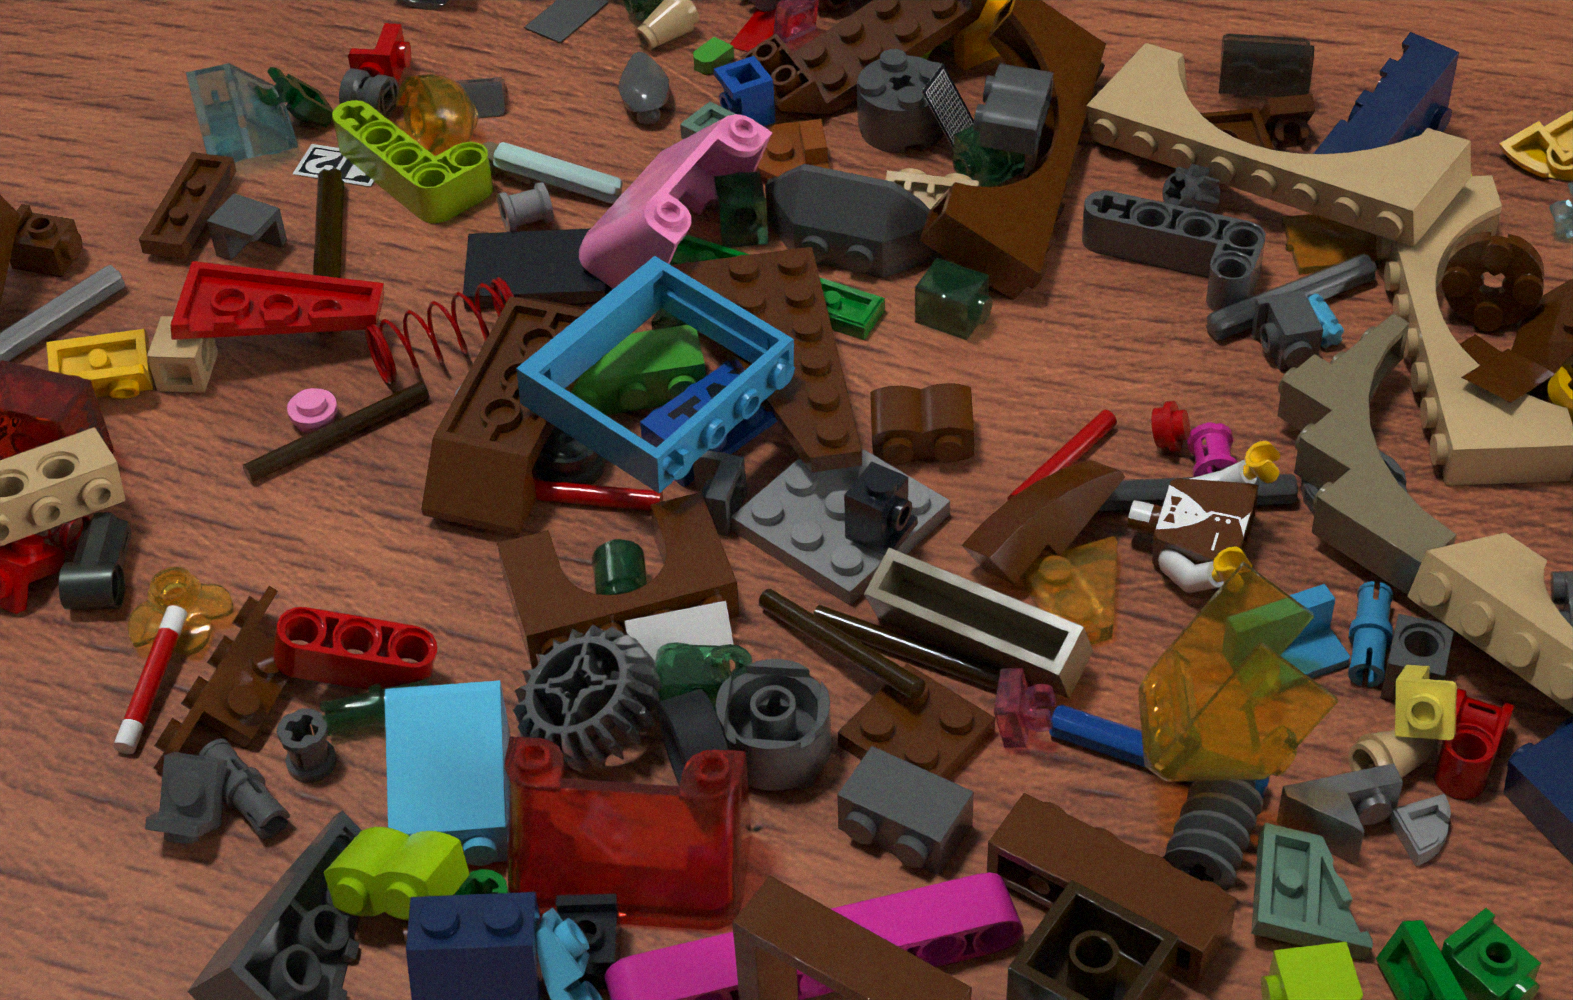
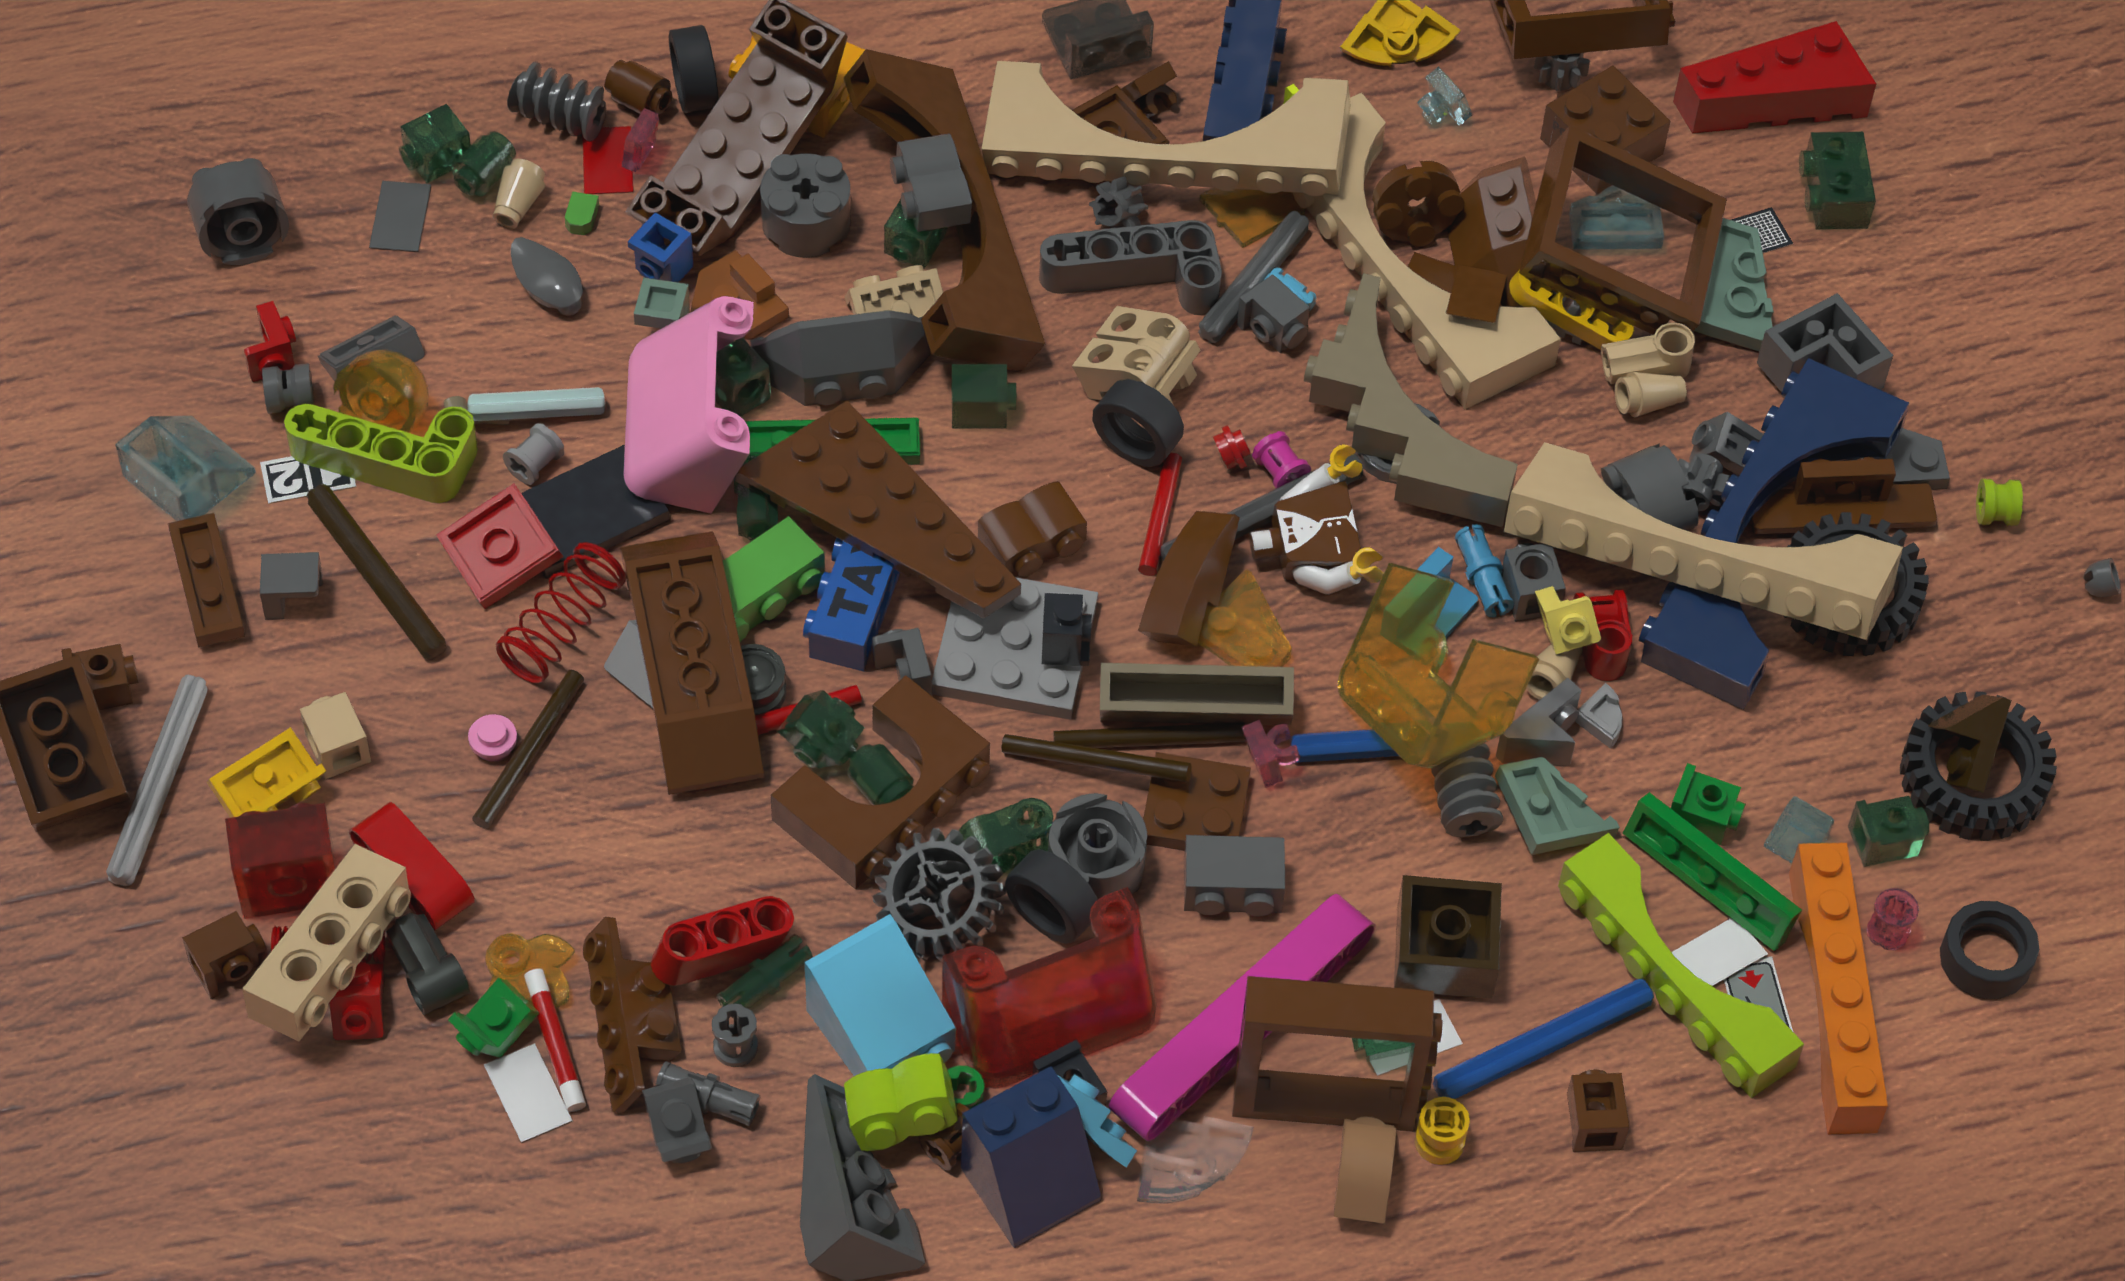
camera: 35 degrees left, 10 degrees up
(96, 718) = (528, 1092): none -> white sticker
(110, 639) = (494, 1020): none -> green bracket
(154, 482) = (433, 881): none -> red beam
(257, 301) = (389, 655): red wing -> none
(302, 99) = (227, 422): dark green plate -> none
(439, 264) = (499, 546): none -> tile
(595, 493) = (822, 730): none -> clear green brick
(615, 317) = (832, 513): dark azure window -> none
(693, 626) = (974, 798): white sticker -> none
(947, 104) = (862, 200): black sticker -> none
(1045, 848) = (1372, 859): reddish brown brick -> none
(1083, 366) = (1149, 408): none -> black tyre
(1122, 317) = (1148, 350): none -> tan hips

